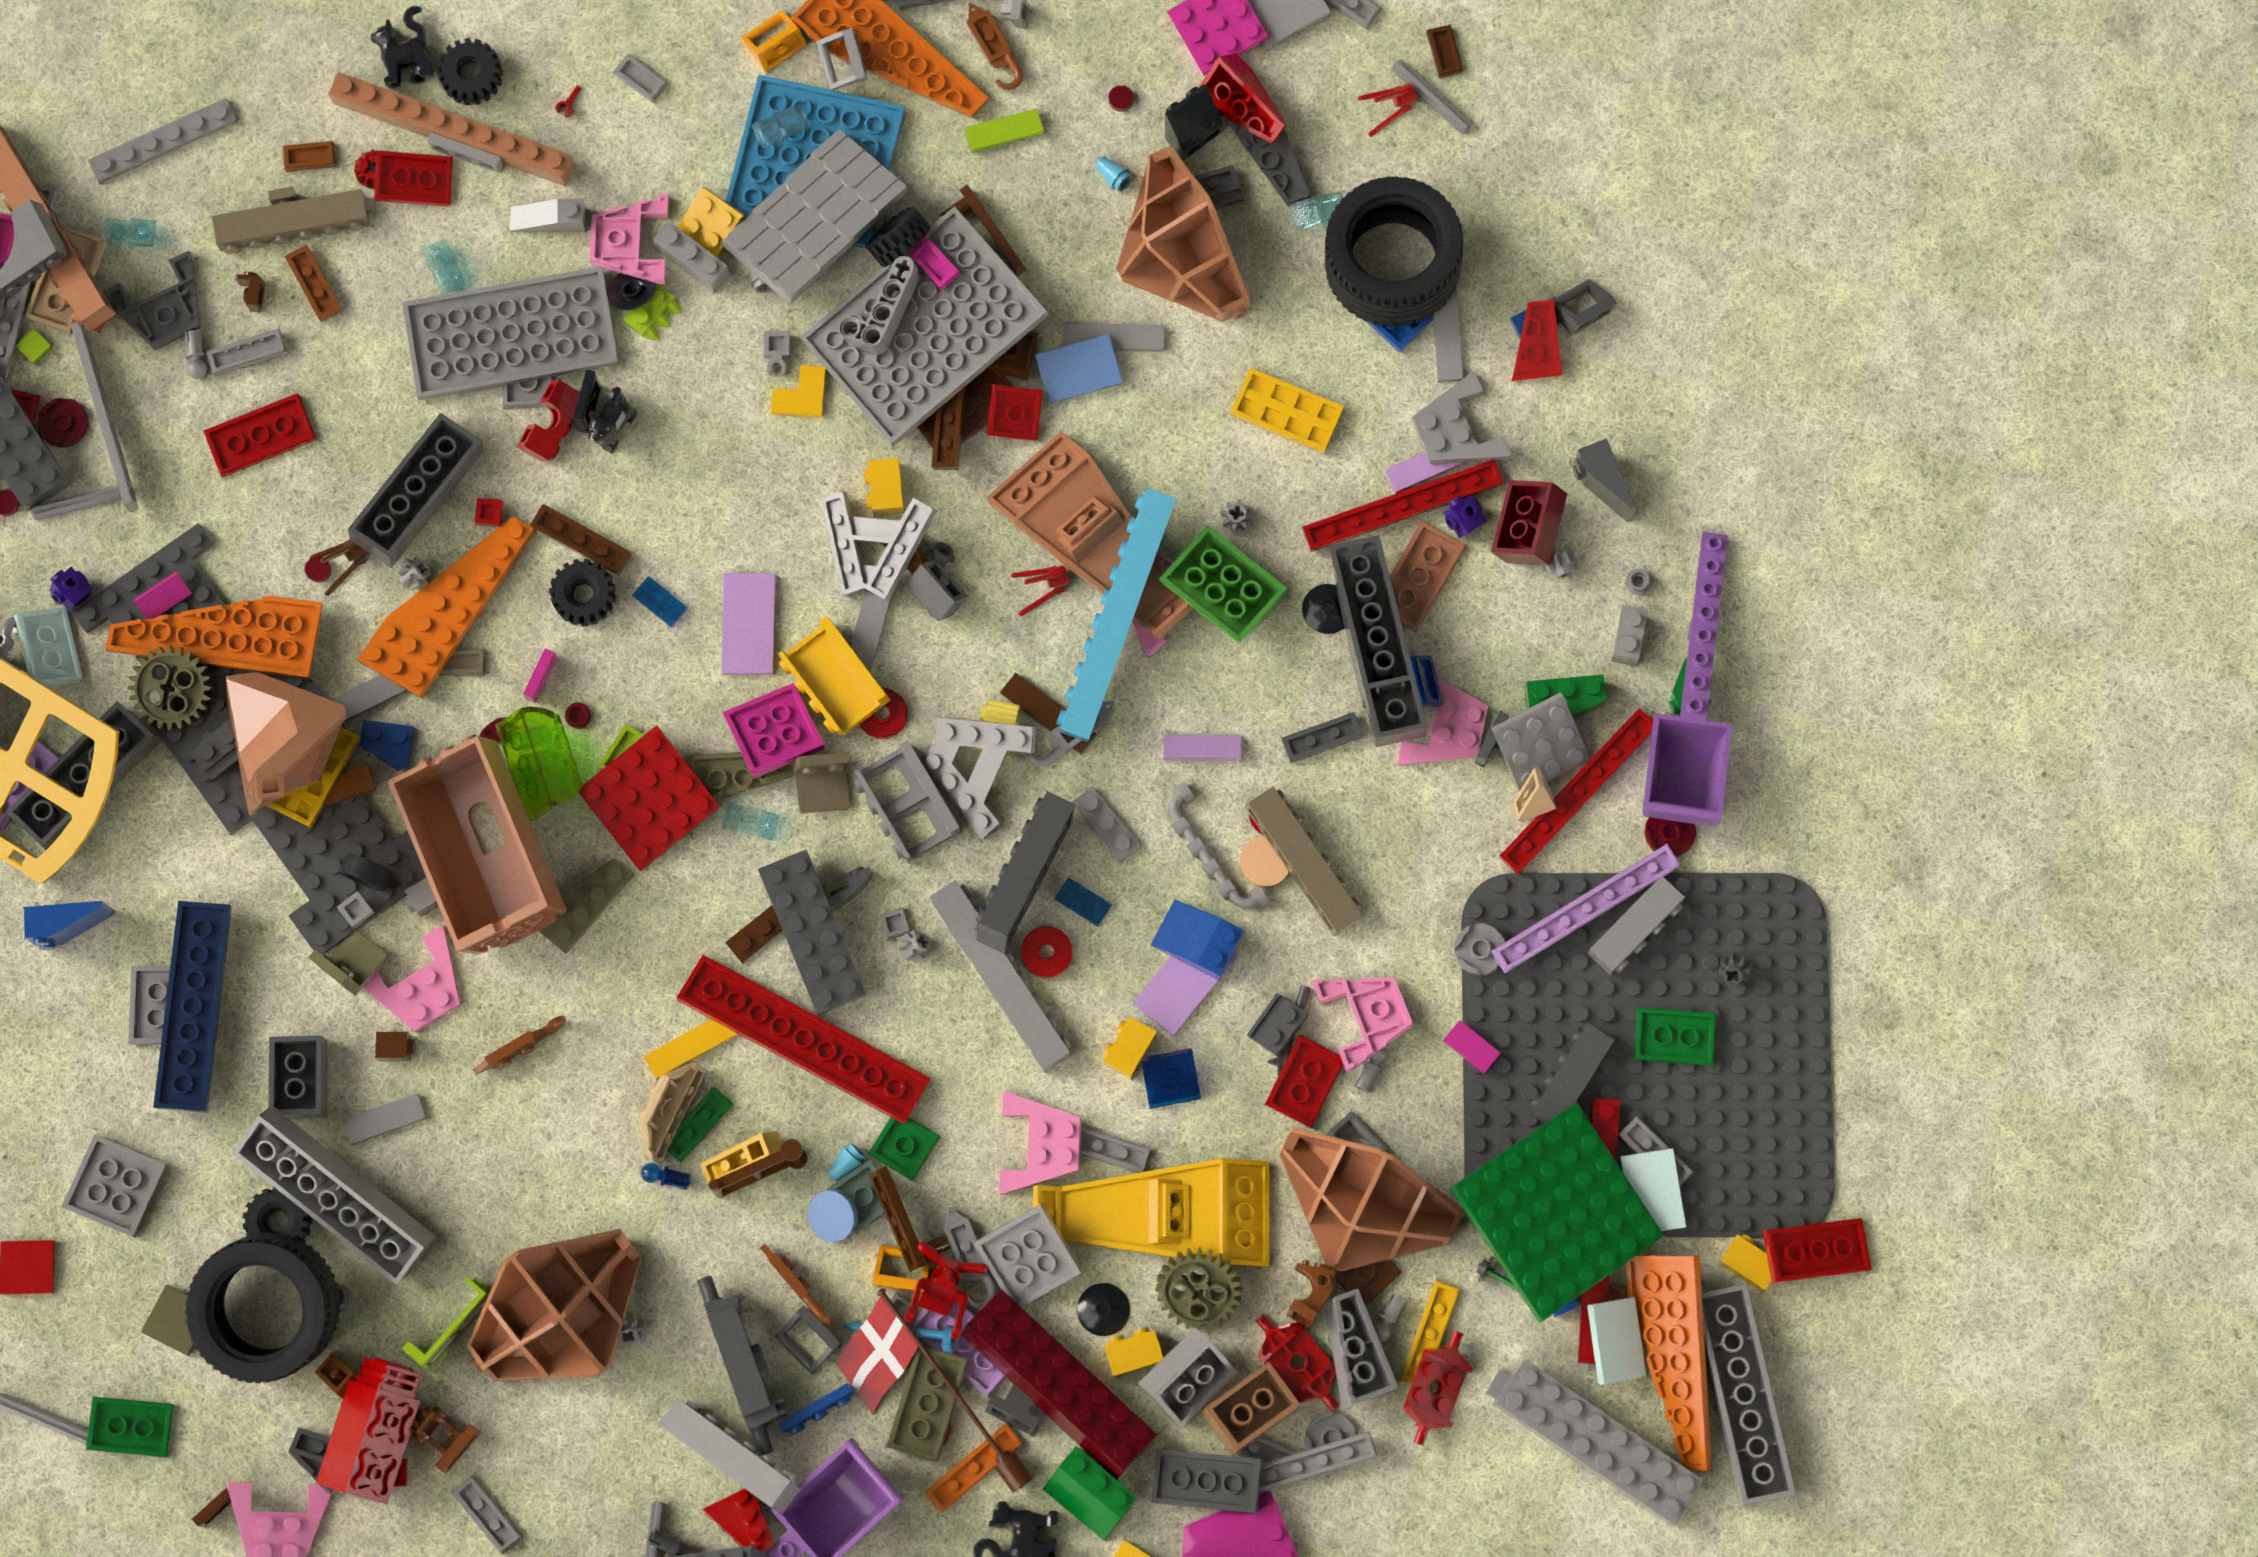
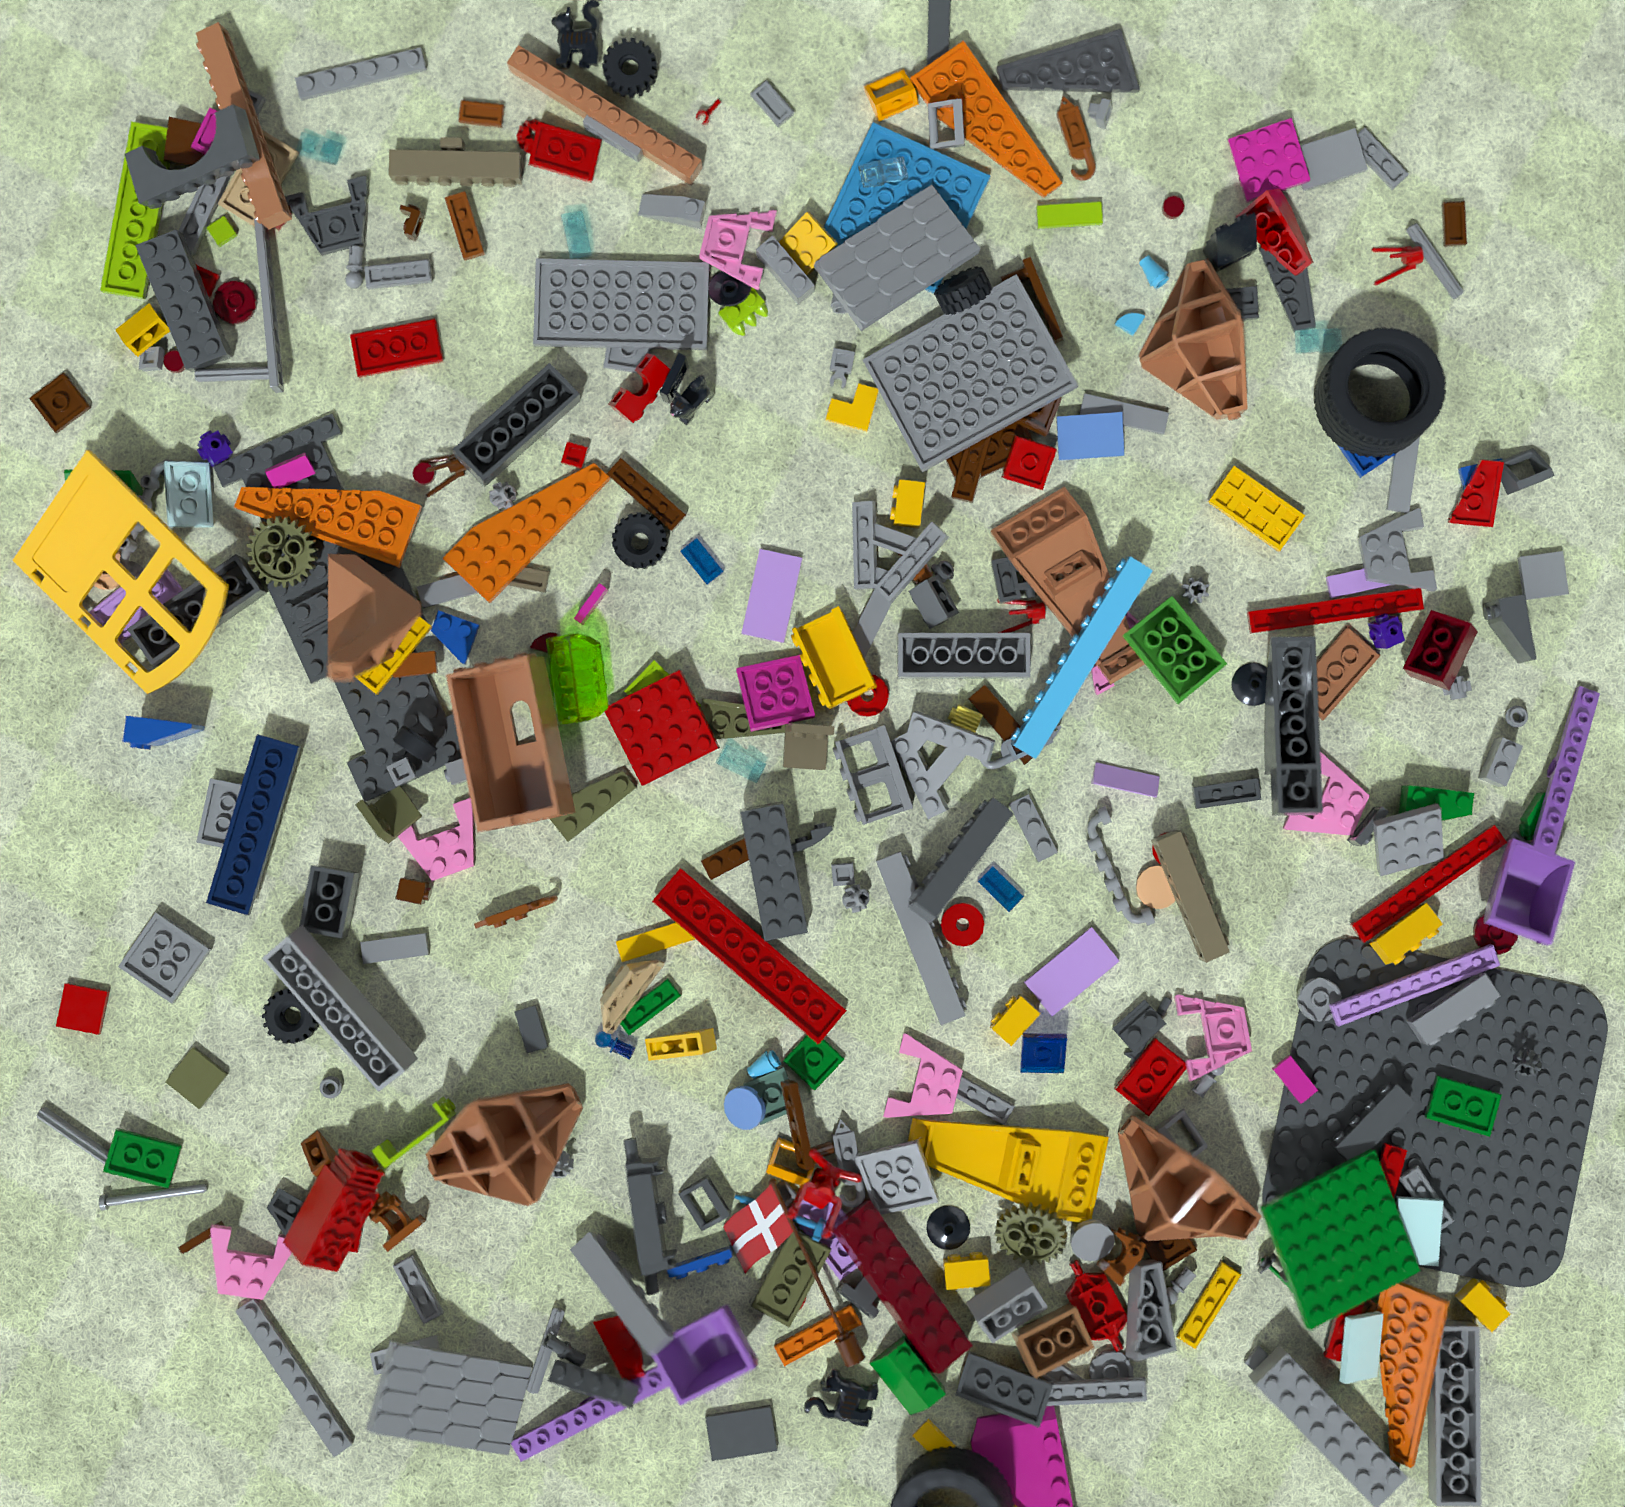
camera: 10 degrees right, 10 degrees up
(95, 1489) = (105, 1201): none -> light grey bar
(209, 1322) = (238, 1127): black tyre -> none
(563, 1179) = (531, 1029): none -> dark grey tile
(577, 715) = (616, 643): dark red tile -> none
(789, 1156) = (721, 1054): reddish brown piece -> none
(798, 1284) = (705, 1158): dark orange plate -> none
(901, 276) = (940, 348): light grey beam -> none
(934, 263) = (989, 321): dark pink tile -> none
(983, 643) = (963, 655): none -> light grey brick
(1017, 552) = (1006, 581): none -> dark grey plate
(1099, 234) = (1130, 322): none -> medium azure tile
(1198, 939) = (1090, 943): blue slope -> none
(1274, 1284) = (1092, 1240): none -> light grey tile
(1426, 680) = (1326, 753): clear blue tile -> none
(1449, 1370) = (1198, 1367): red plate -> none
(1534, 797) = (1391, 883): tan slope -> none
(1564, 853) = (1407, 934): none -> yellow brick
(1633, 417) = (1543, 575): none -> light grey tile
(1817, 1250) = (1540, 1307): red tile -> none

